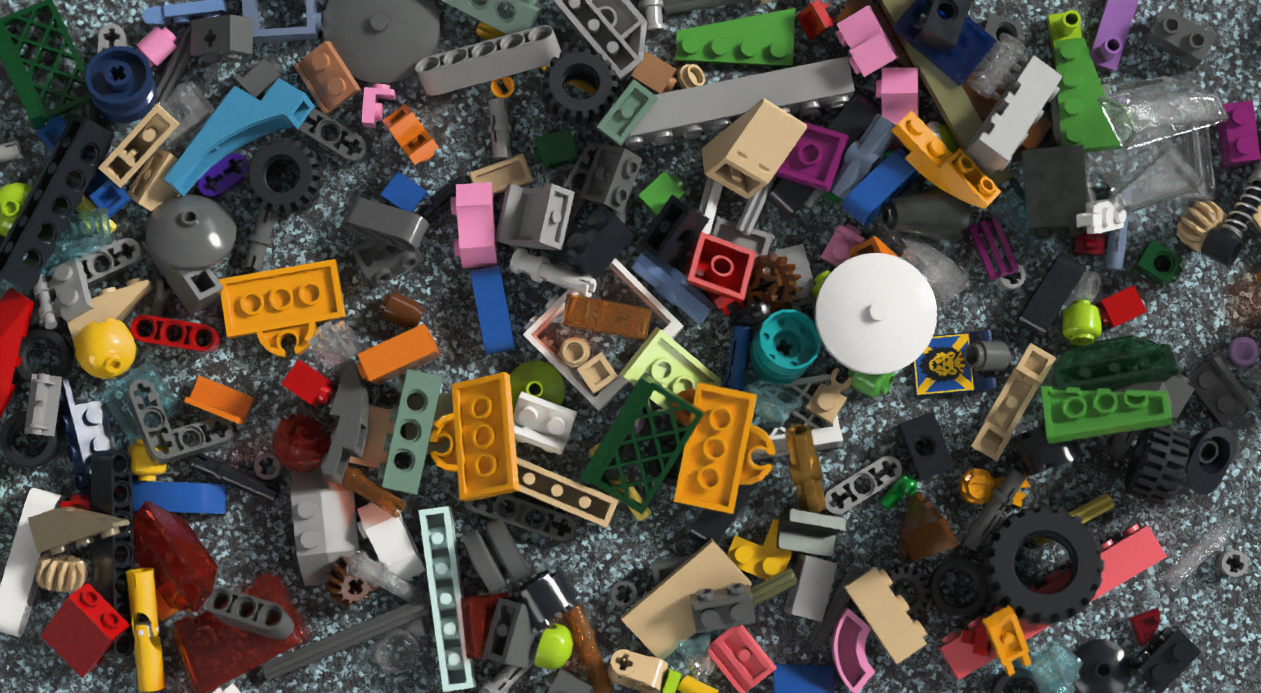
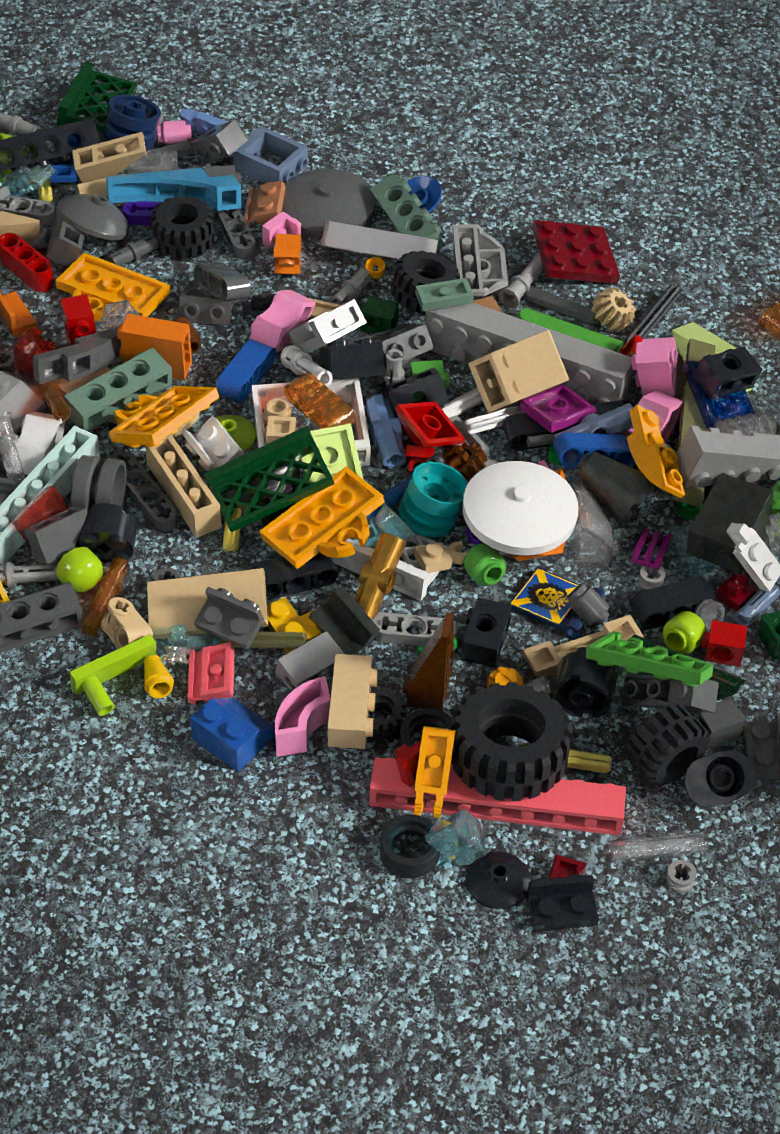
camera: 30 degrees right, 35 degrees down
(403, 193) = (255, 274): blue panel -> none
(638, 216) = (393, 370): none -> light grey pin

